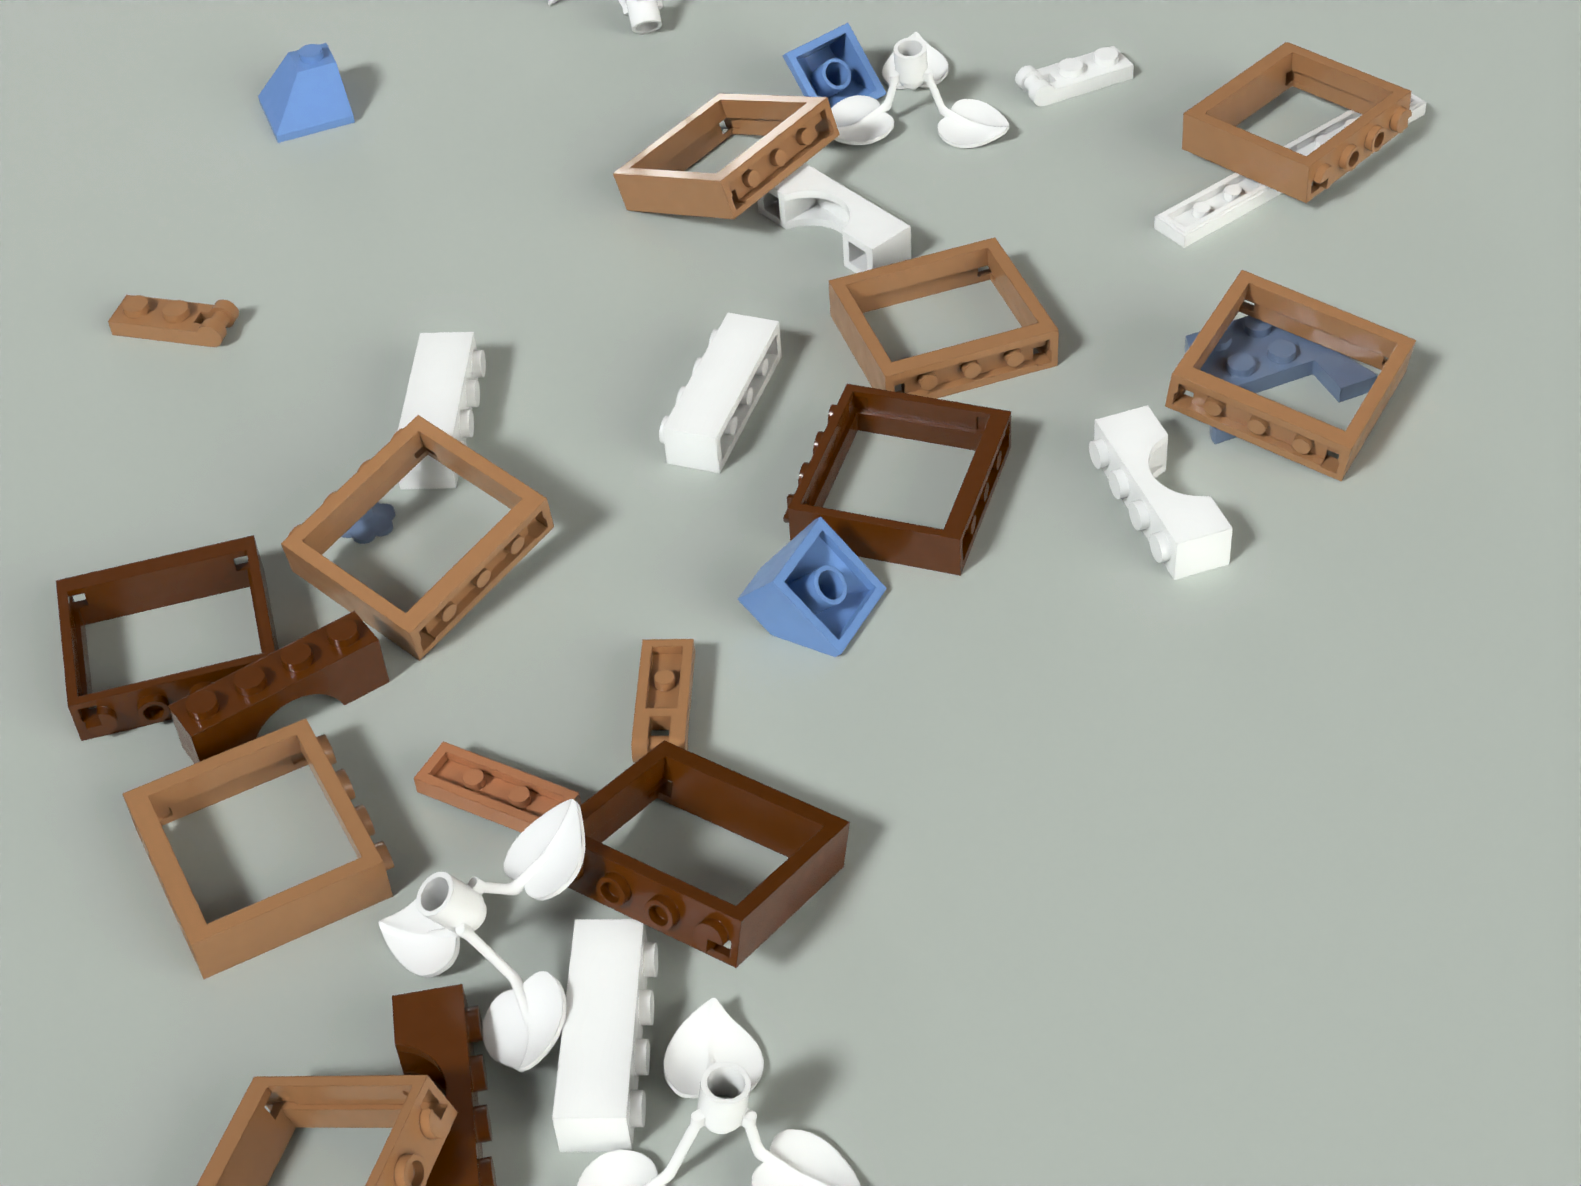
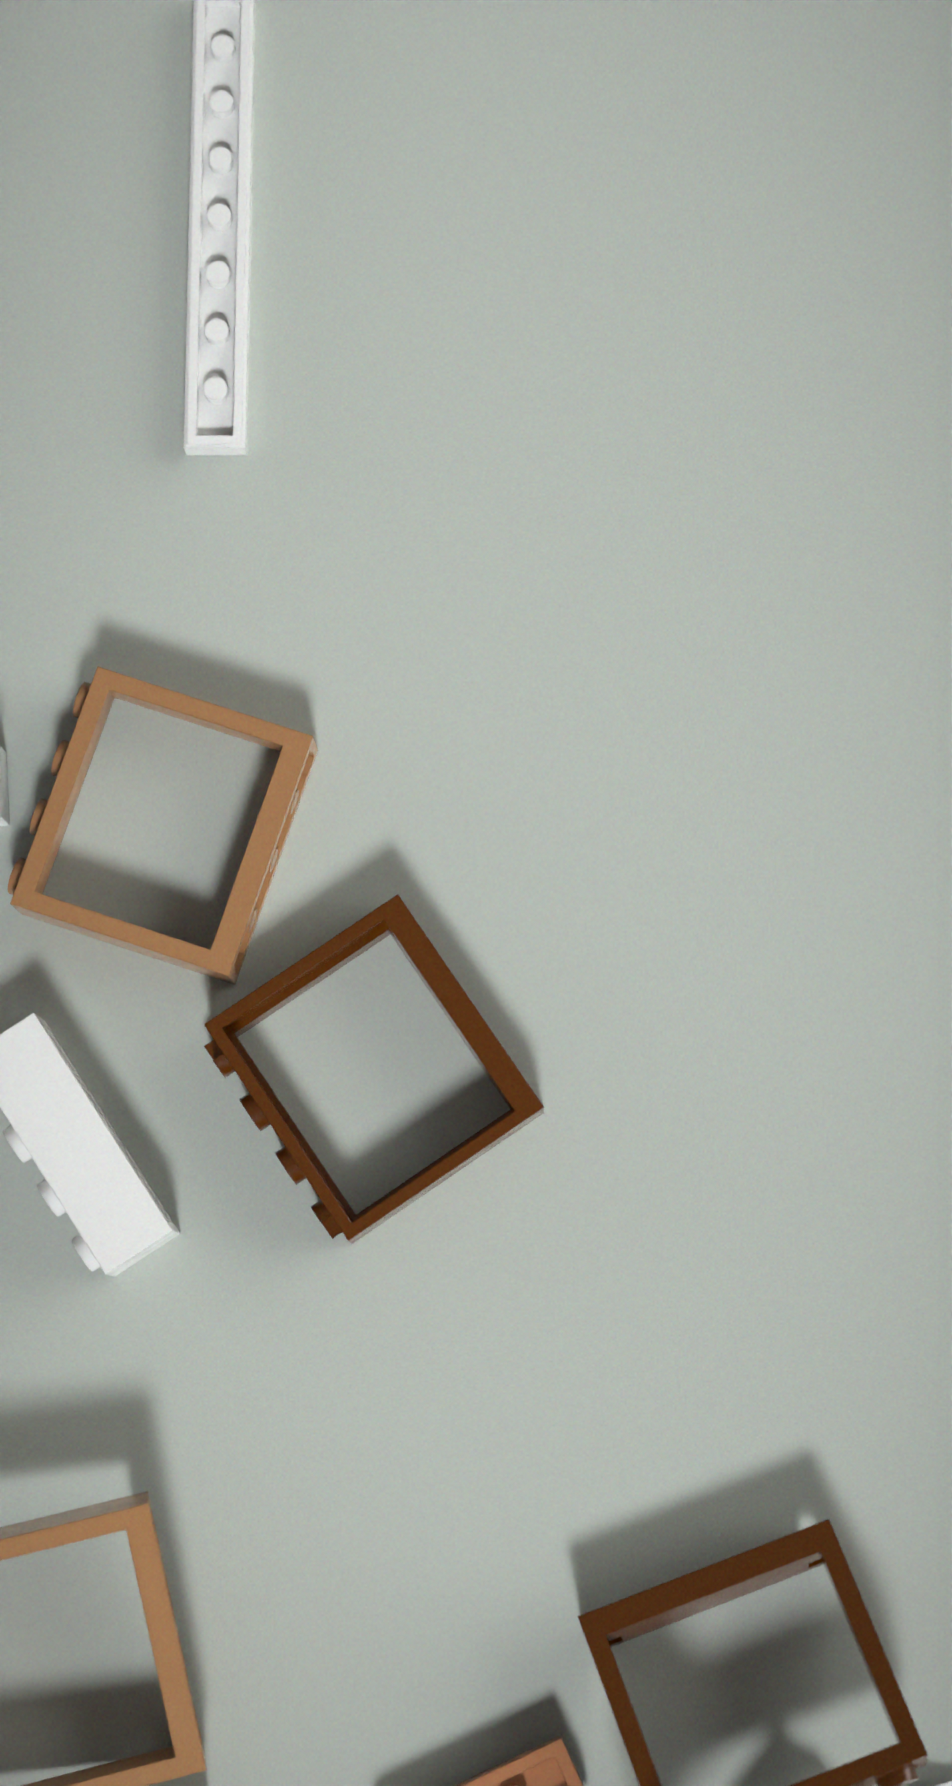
camera: 50 degrees left, 35 degrees up
(663, 694) = (488, 1553): medium nougat plate -> none
(813, 591) = (471, 1295): medium blue slope -> none
(1181, 528) = (691, 864): white arch -> none
(1213, 133) = (201, 274): medium nougat window -> none
(1265, 356) = (488, 555): sand blue wing -> none
(1269, 422) = (565, 456): medium nougat window -> none

